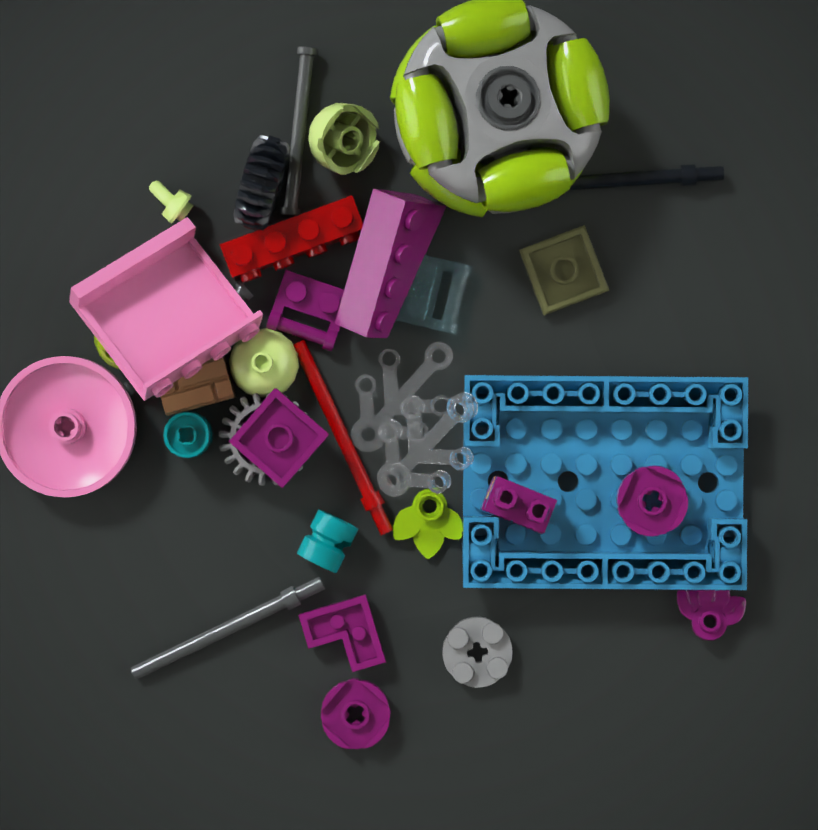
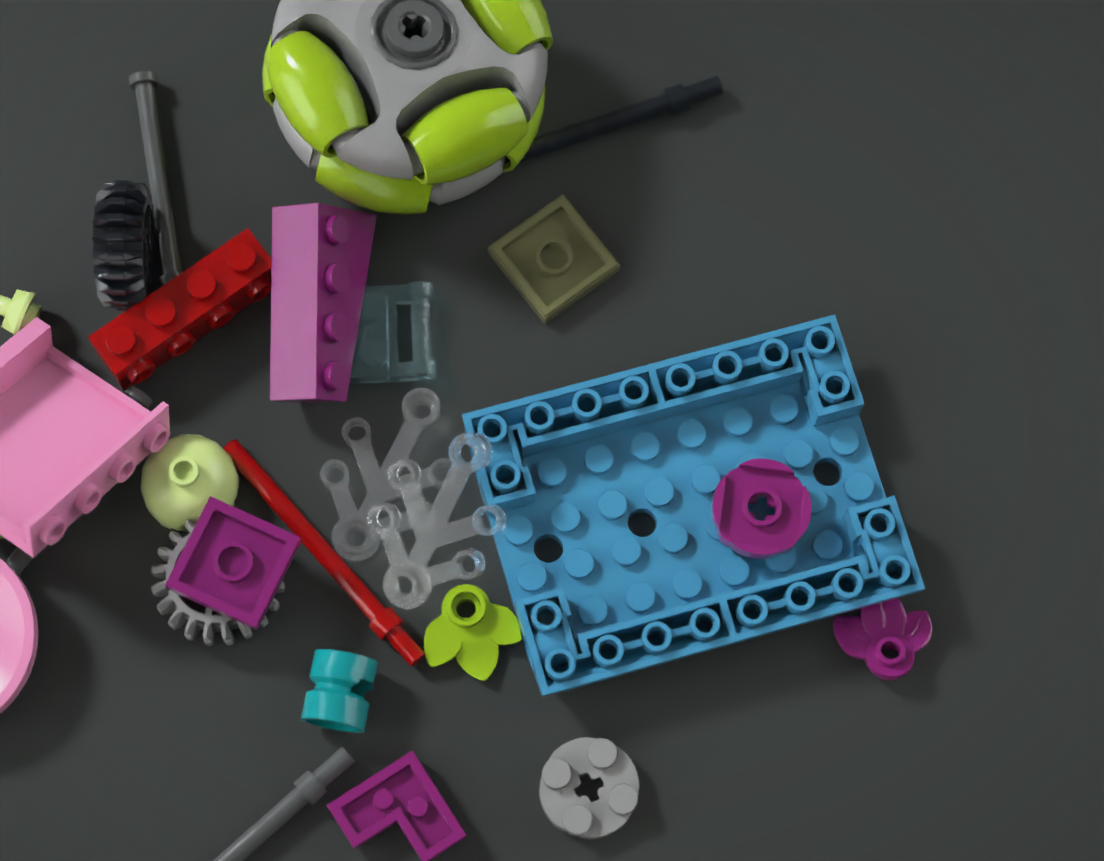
camera: 25 degrees left, 15 degrees down
(188, 434) = (109, 601): teal wheel -> none
(205, 388) = (106, 537): medium nougat brick -> none
(310, 298) = (229, 384): magenta plate -> none
(344, 138) = (218, 163): yellowish green cylinder -> none
(518, 504) = (595, 555): magenta hips -> none

